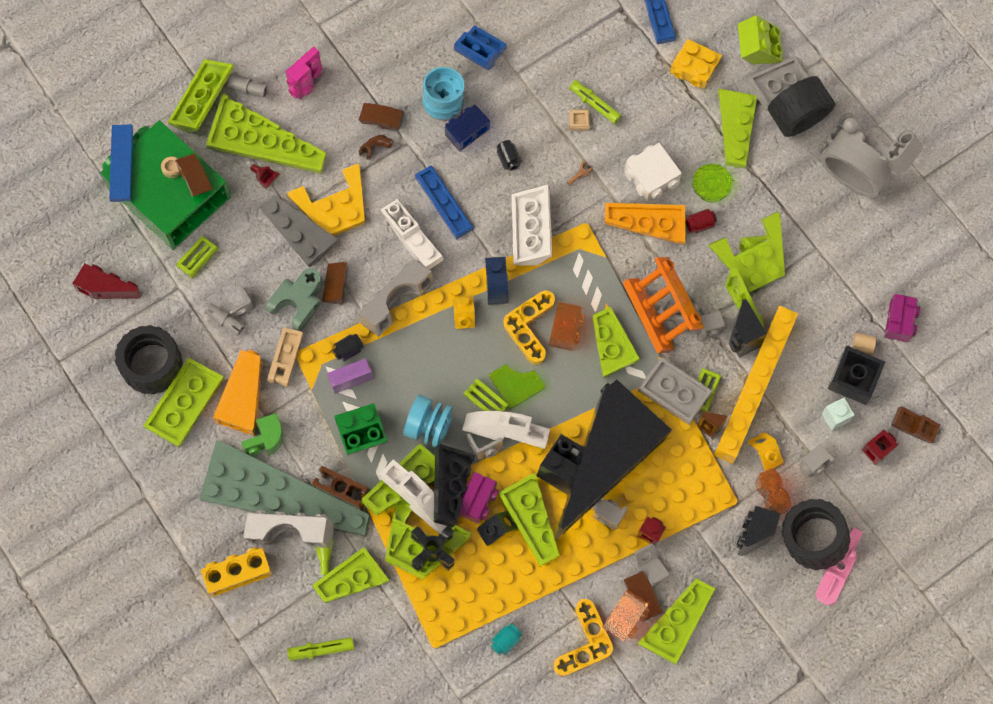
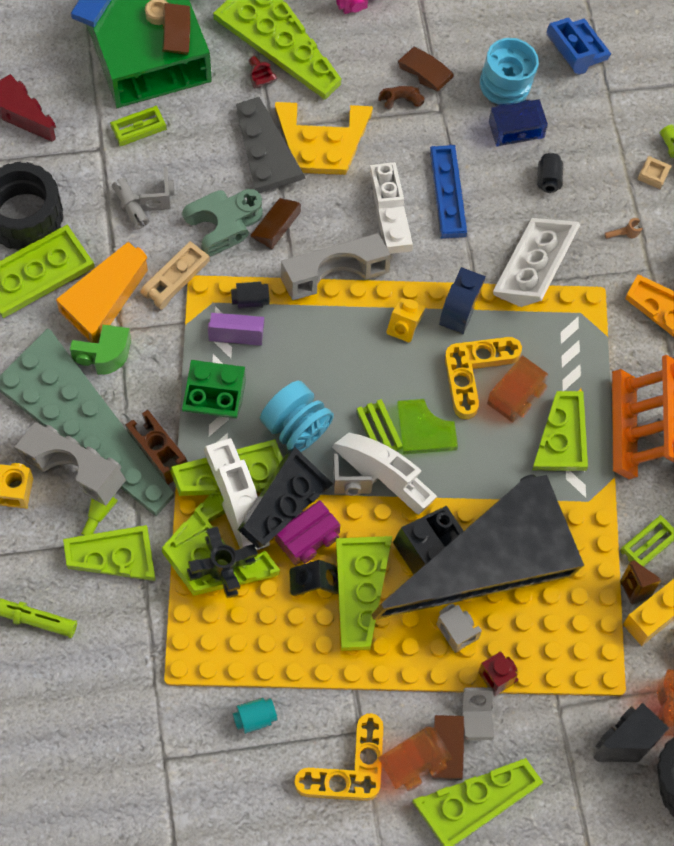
camera: 25 degrees right, 5 degrees down
(675, 390) = (613, 524): light grey tile -> none

